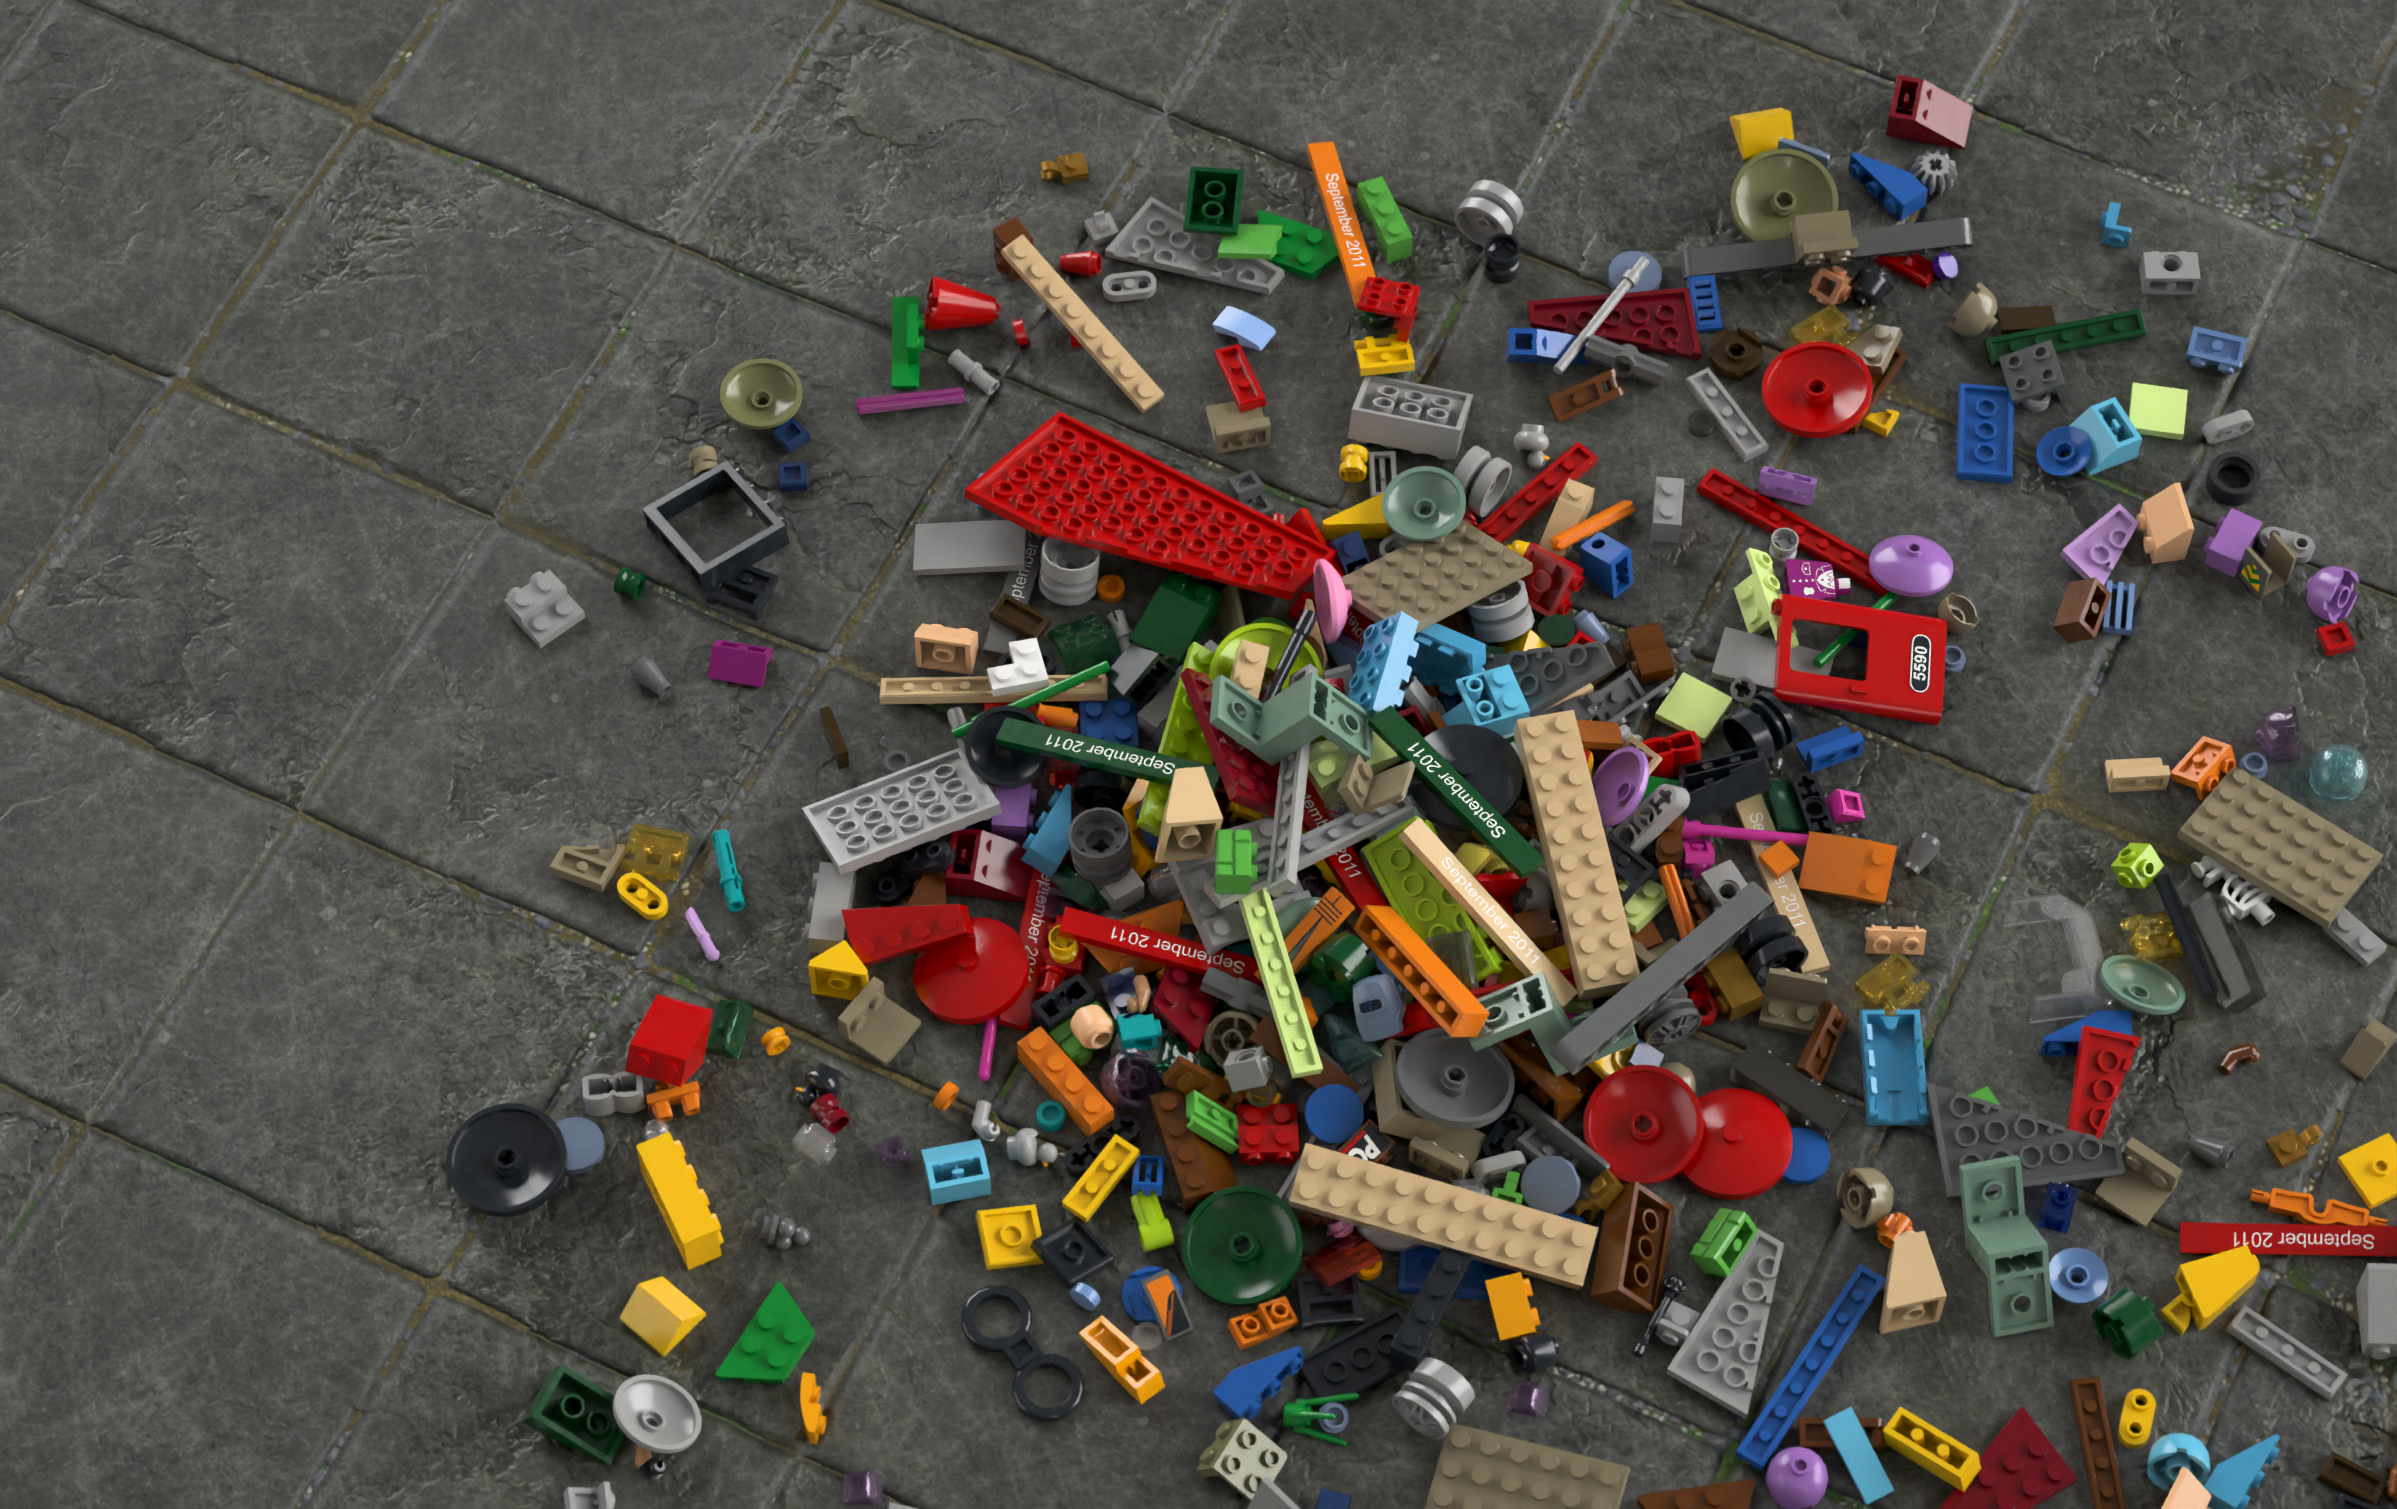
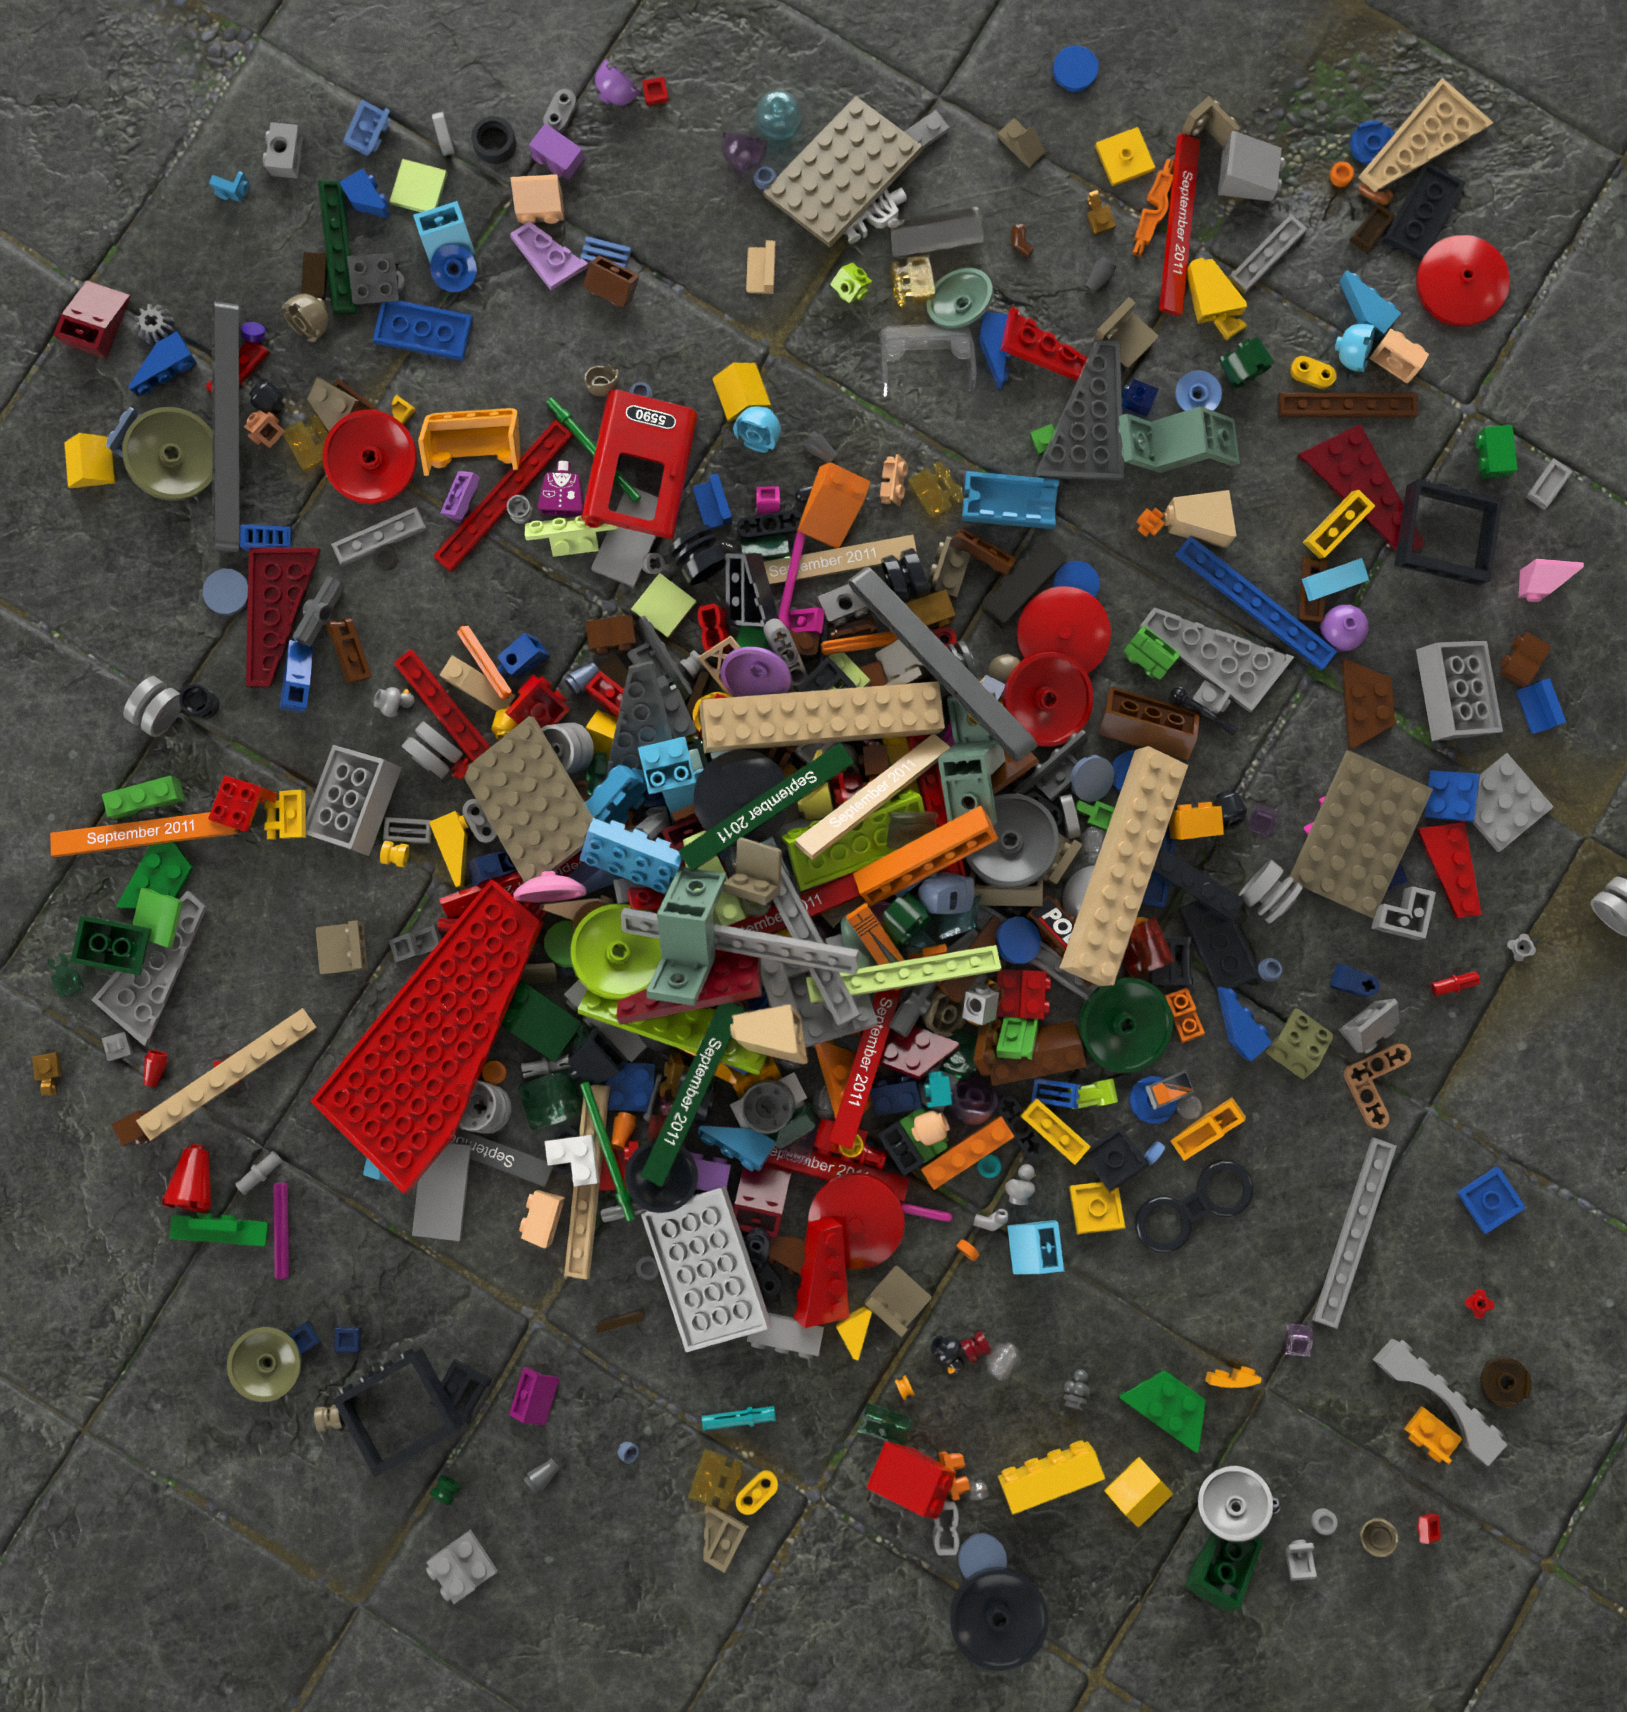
camera: 85 degrees left, 25 degrees up
(677, 757) = (628, 1457): none -> sand blue hinge
(702, 936) = (794, 1444): lavender piece -> none
(893, 1143) = (1004, 1293): clear purple plate -> none
(1019, 617) = (519, 1152): dark brown tile -> none
(1020, 332) = (222, 1128): red tile -> none
(1129, 286) = (181, 1028): light grey plate -> none
(1143, 993) = (907, 1083): medium nougat arm -> none
(1172, 173) = (67, 979): none -> clear green plate
(1234, 862) = (826, 998): bright green brick -> none
(1239, 378) = (294, 941): red tile -> none
(1247, 328) = (241, 931): light blue slope -> none
(1249, 667) = (625, 968): tan brick -> none
(1299, 1415) = (1268, 996): green plant -> none
(1300, 634) = (633, 946): black piece -> none
(1422, 491) = (439, 796): sand green dish -> none
(1556, 630) = (584, 705): clear green piece -> none
(1600, 734) = (695, 687): dark orange tile -> none
(1601, 1193) = (1104, 738): pearl gold plate -> none
(1628, 280) = (237, 596): light grey bar -> none
(1667, 509) = (473, 598): light grey brick -> none
(1736, 366) = (329, 528): dark brown plate -> none
(1778, 859) = (817, 559): orange tile -> none
(1822, 237) = (223, 425): dark tan bracket -> none
(1862, 480) = (469, 434): none -> light orange windscreen
(1865, 1196) = (1122, 539): dark tan cylinder -> none
(1911, 565) = (559, 417): medium lavender dish -> none
(1932, 781) = (758, 428): none -> medium azure cylinder
(1978, 766) = (740, 388): none -> yellow slope
(2136, 354) = (363, 194): none -> blue slope
(2186, 935) = (918, 257): black axle -> none
(2204, 766) = (762, 214): orange bracket -> none
(2276, 563) = (584, 128): dark tan piece -> none

